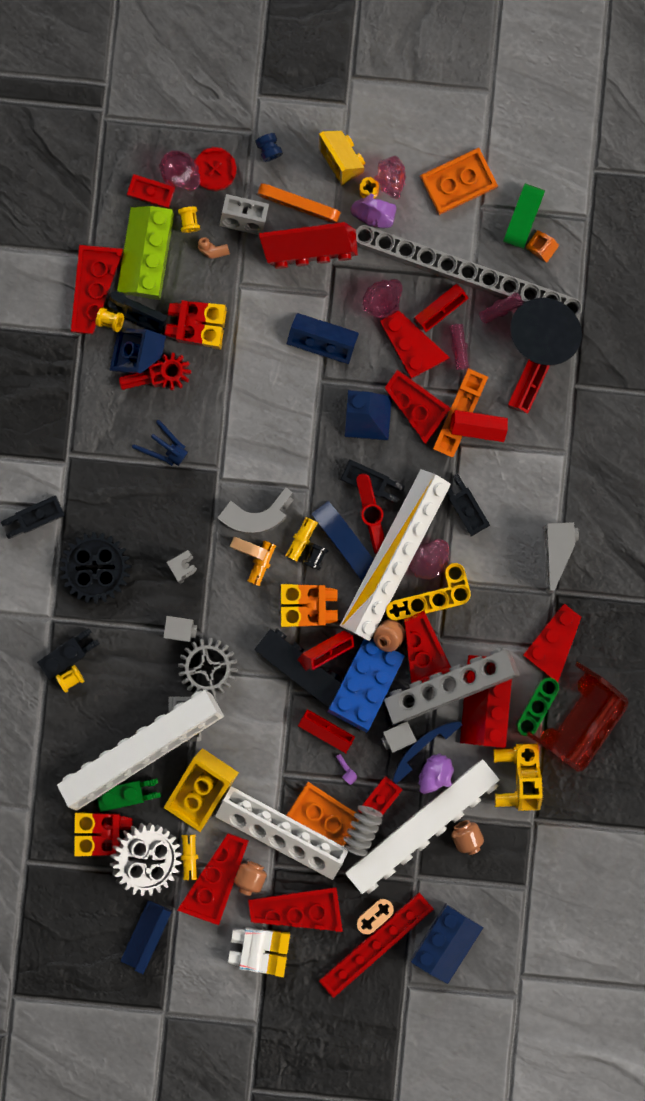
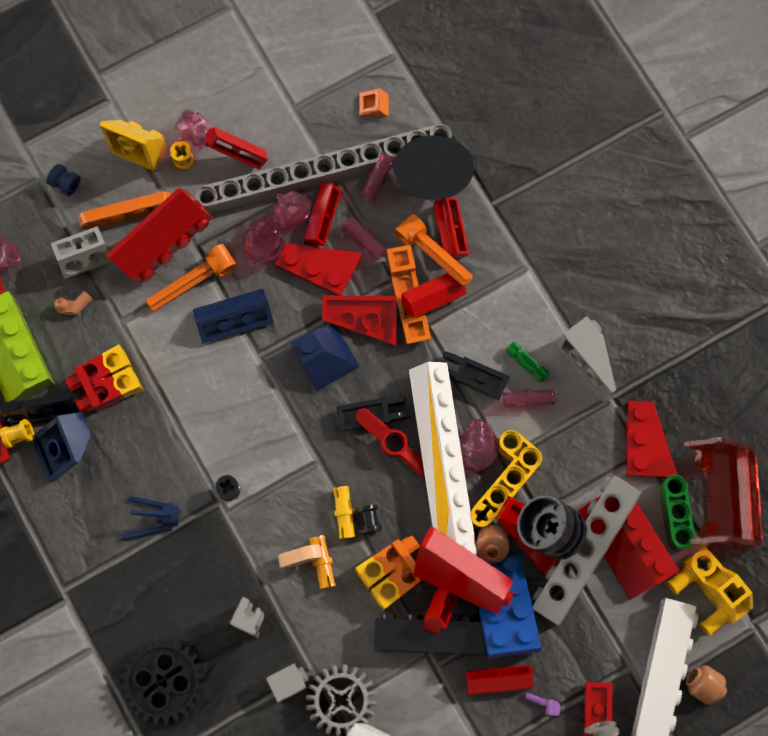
camera: 40 degrees left, 10 degrees down
(35, 516) = (69, 673): black hinge -> none
(158, 374) = (99, 453): red gear -> none
(189, 219) = (32, 292): yellow bush -> none
(216, 169) = (27, 231): red tile -> none
(232, 457) = (224, 481): none -> black bush
(256, 523) = (289, 528): light grey arch -> none
(339, 290) = (217, 261): none -> orange axle
(344, 539) = (384, 484): dark blue slope -> none
(350, 640) = (461, 572): none -> red slope
(374, 212) = (201, 170): medium lavender hair -> none
(398, 737) = (571, 635): light grey brick -> none
(413, 211) = (237, 145): none -> red piece
(418, 289) = (291, 210): none -> clear pink hair
(435, 654) = (552, 527): none -> black wheel
(435, 774) = (632, 645): medium lavender hair -> none
(445, 730) = (596, 661): dark blue slope -> none
(458, 181) = (259, 98): orange tile -> none
(493, 550) = (528, 398): none -> clear pink pin
(498, 368) = (414, 231): none -> orange axle
(512, 523) = (529, 363): none -> green axle
(524, 216) = (339, 88): green beam -> none

